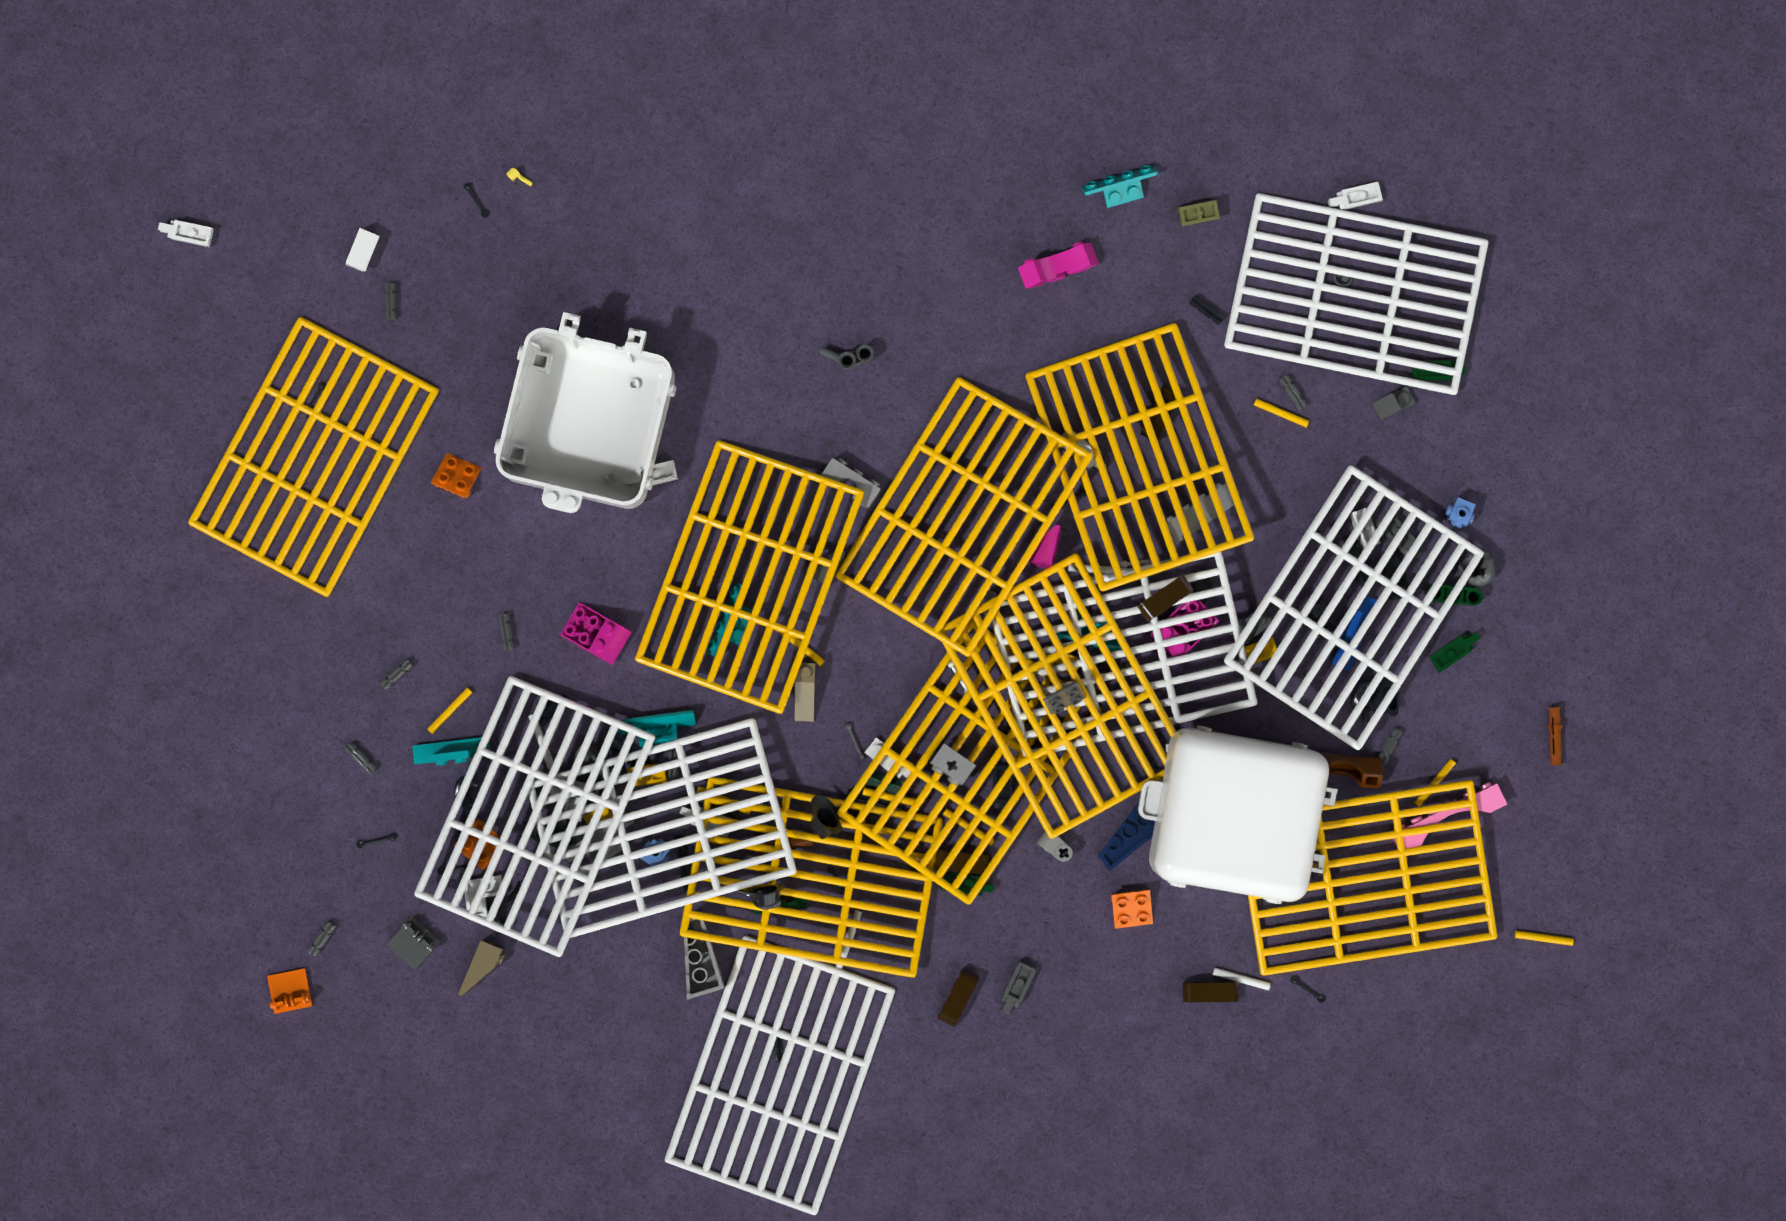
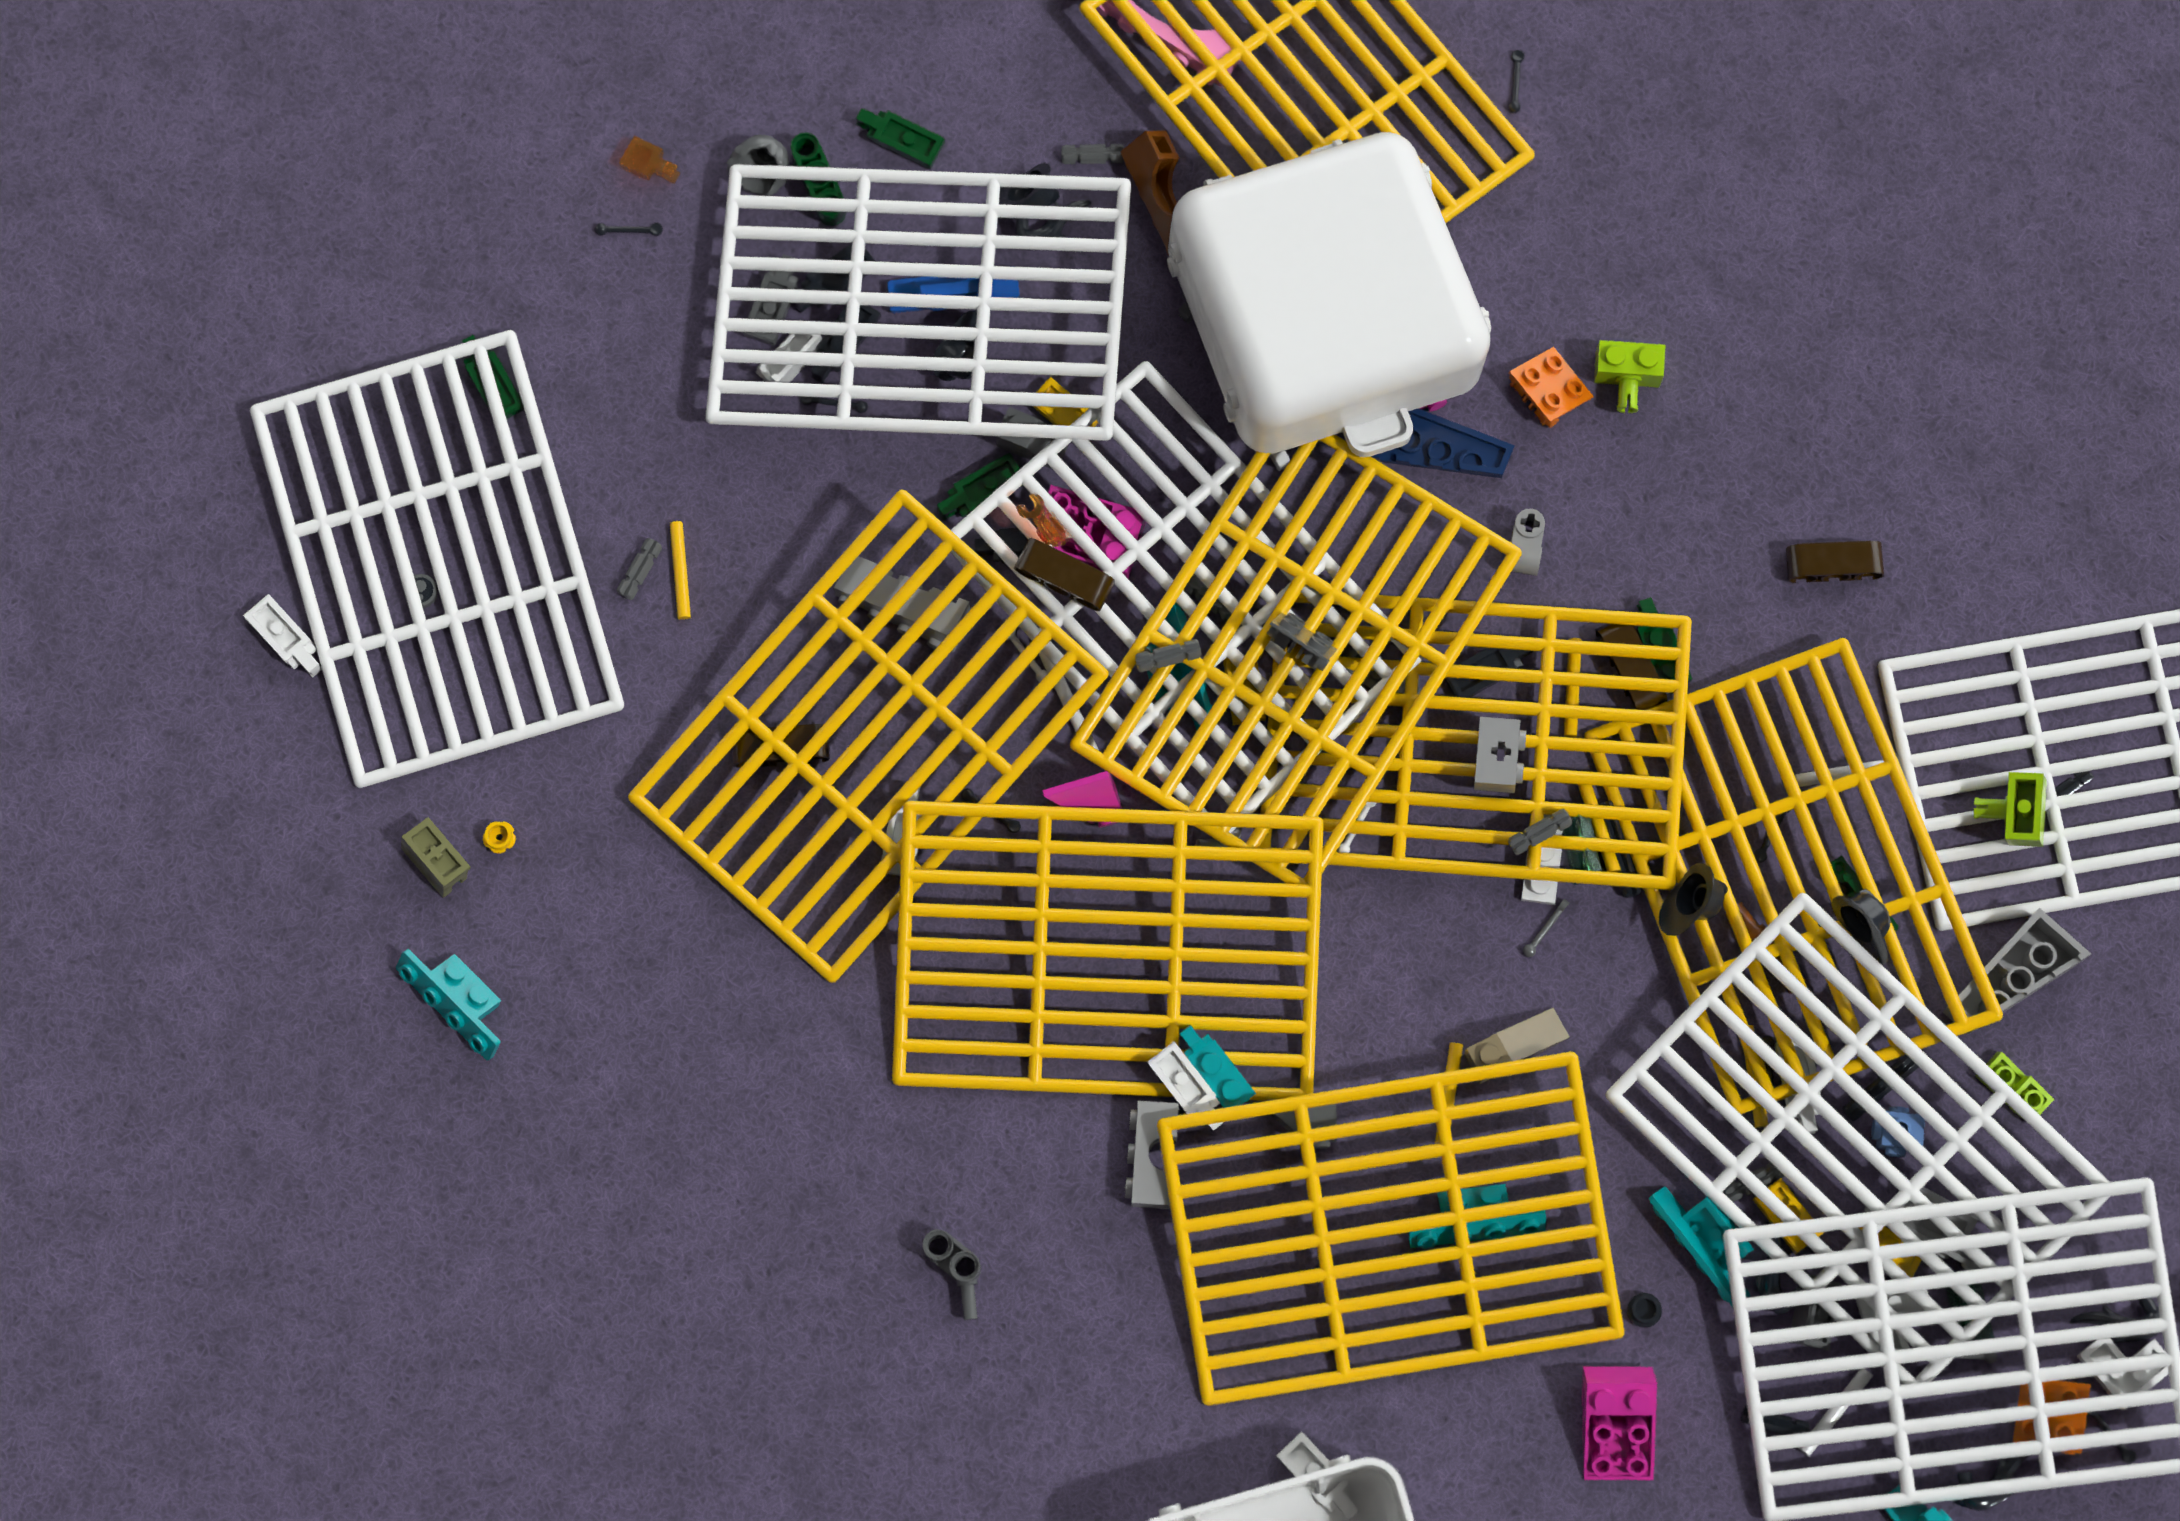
camera: 120 degrees left, 10 degrees down
(641, 678) = (1644, 1310): none -> black plate
(646, 925) = (2023, 1085): none -> lime slope
(778, 1011) = (2021, 809): none -> lime brick
(874, 536) = (1216, 1069): none -> teal hinge
(877, 517) = (1184, 1081): none -> white hinge
(902, 763) = (1540, 831): none -> dark grey axle
(1017, 986) = (1765, 486): dark grey hinge -> none
(1056, 266) = (642, 1029): dark pink brick -> none
(1094, 626) = (1167, 655): none -> dark grey axle
(1117, 954) = (1629, 367): none -> lime brick
(1191, 245) = (494, 829): none -> yellow plate
(1196, 604) = (1049, 526): none -> clear orange plate
(1206, 309) = (581, 764): black axle -> none
(1210, 992) = (1604, 208): dark brown beam -> none
(1240, 586) = (977, 487): none -> dark green hinge
(1241, 978) = (1557, 179): white bar -> none
(1393, 403) = (575, 415): dark grey slope -> none
(1436, 781) = (1104, 62): yellow bar -> none
(1466, 509) = (690, 232): medium blue brick -> none
(1473, 498) = (655, 229): none -> black hinge
(1514, 512) = (645, 159): none -> clear orange plate

